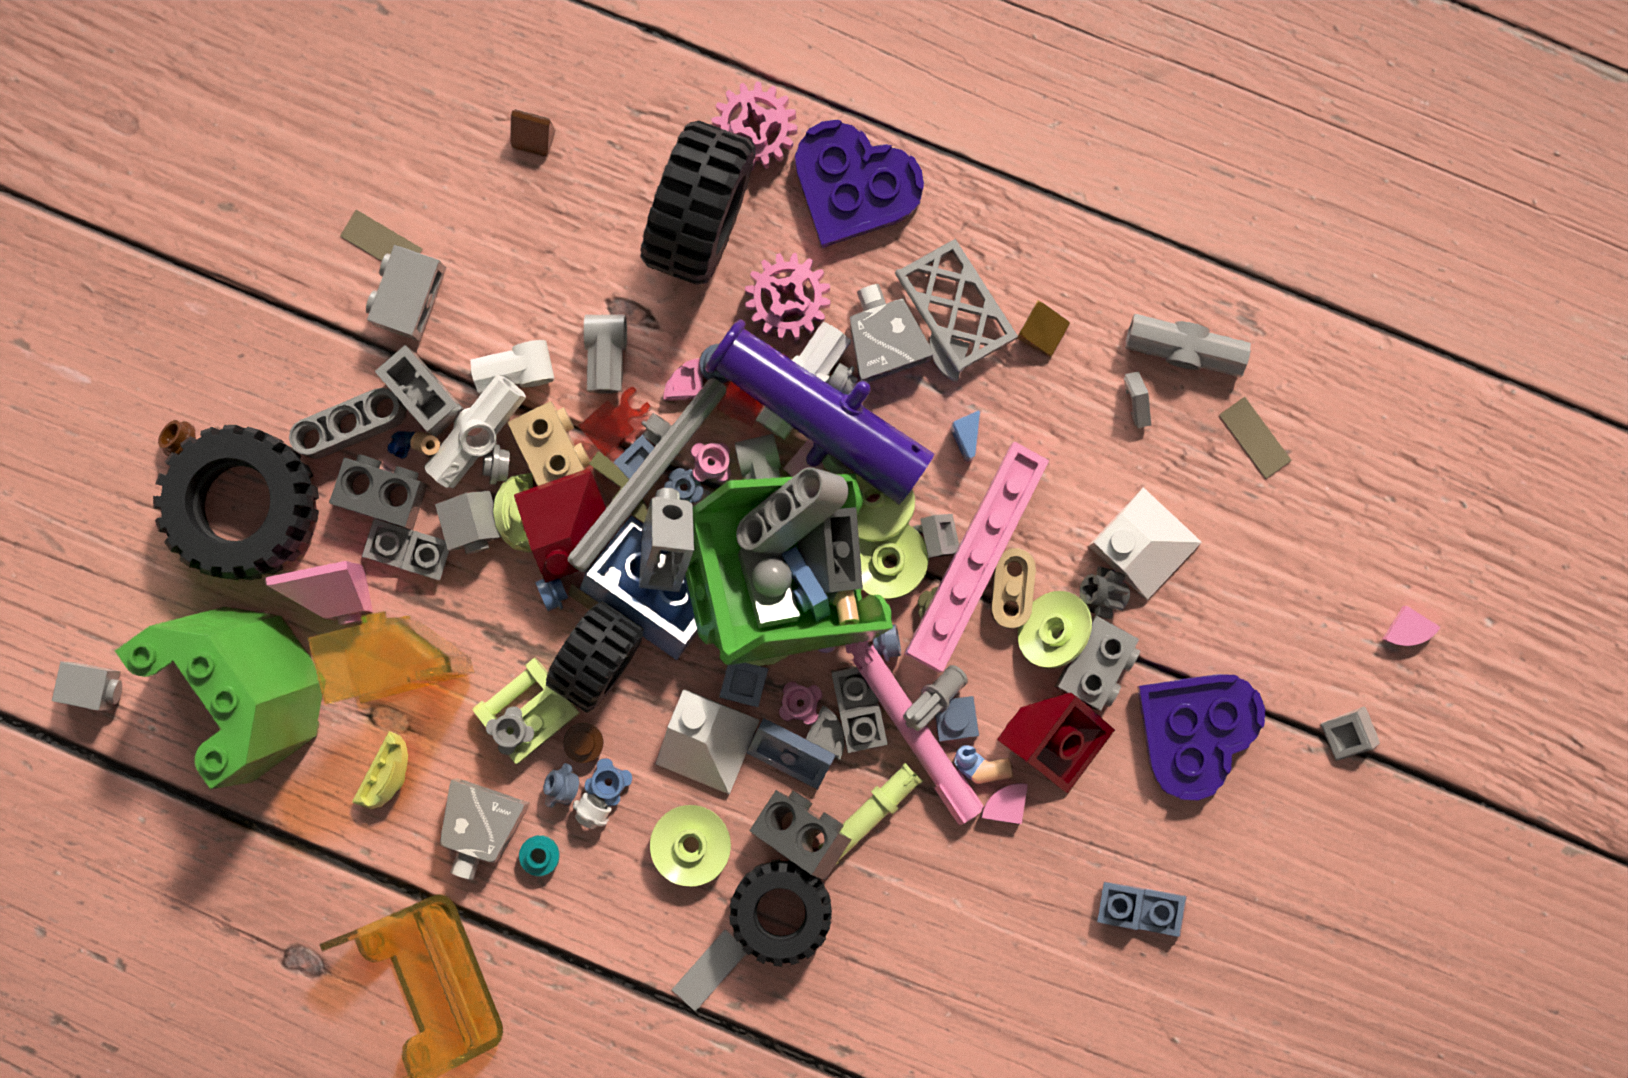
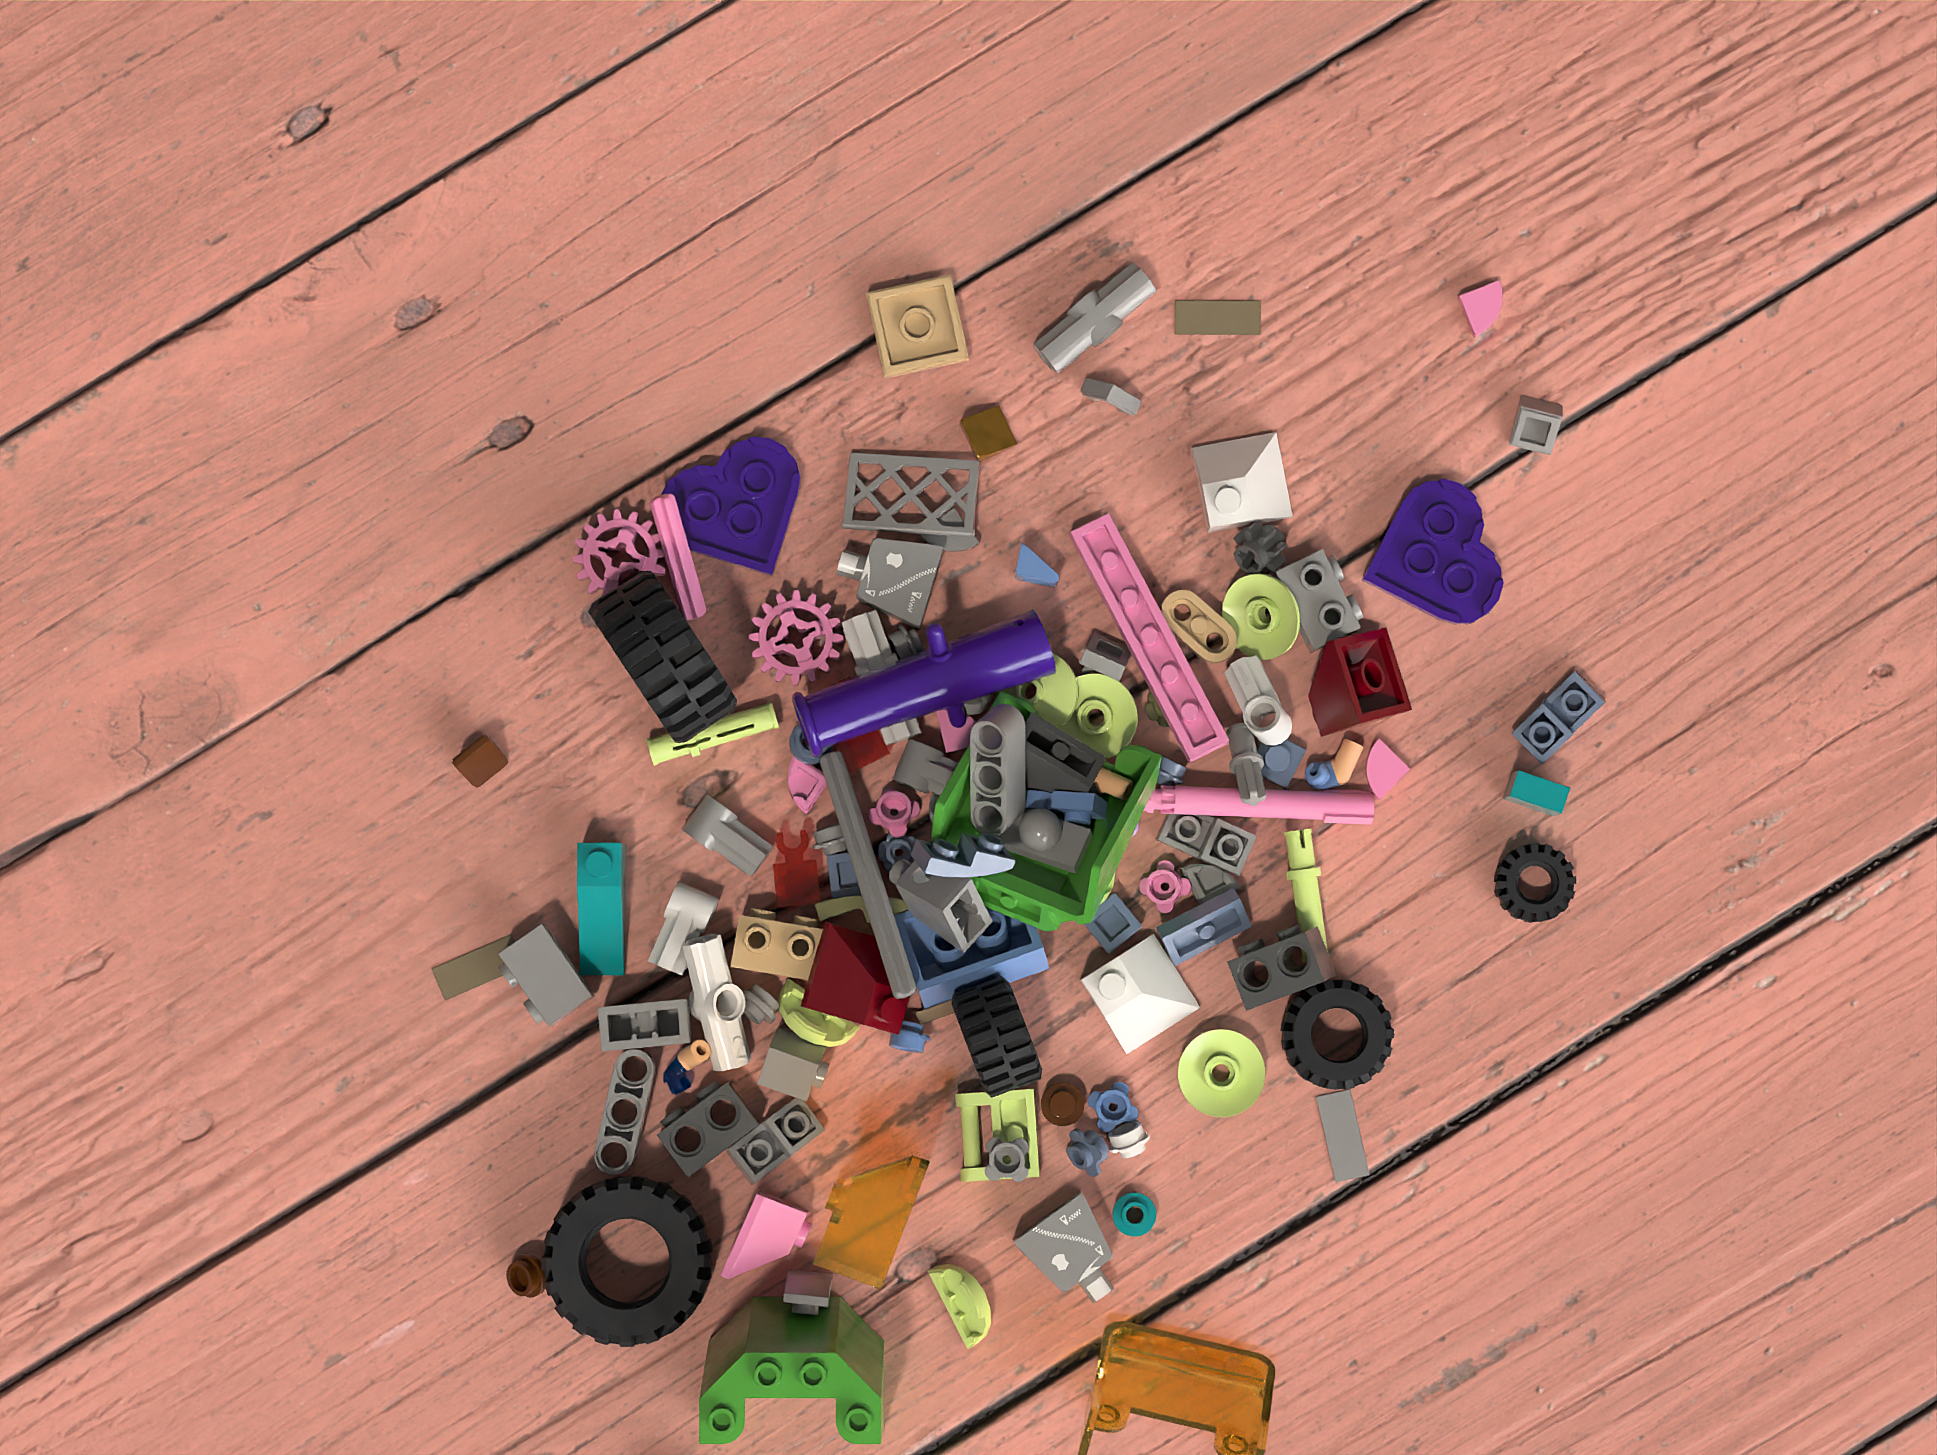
camera: 65 degrees left, 0 degrees up
(297, 651) = (807, 1291): none -> light grey slope
(487, 297) = (601, 908): none -> teal slope
(675, 289) = (727, 729): none -> yellowish green pin
(709, 539) = (970, 858): none -> sand blue slope
(785, 166) = (678, 556): none -> bright pink axle
(990, 671) = (1258, 699): none -> white piece
(1014, 1003) = (1561, 883): none -> black tyre
(1072, 933) = (1536, 793): none -> teal piece
(1084, 219) = (917, 326): none -> tan plate

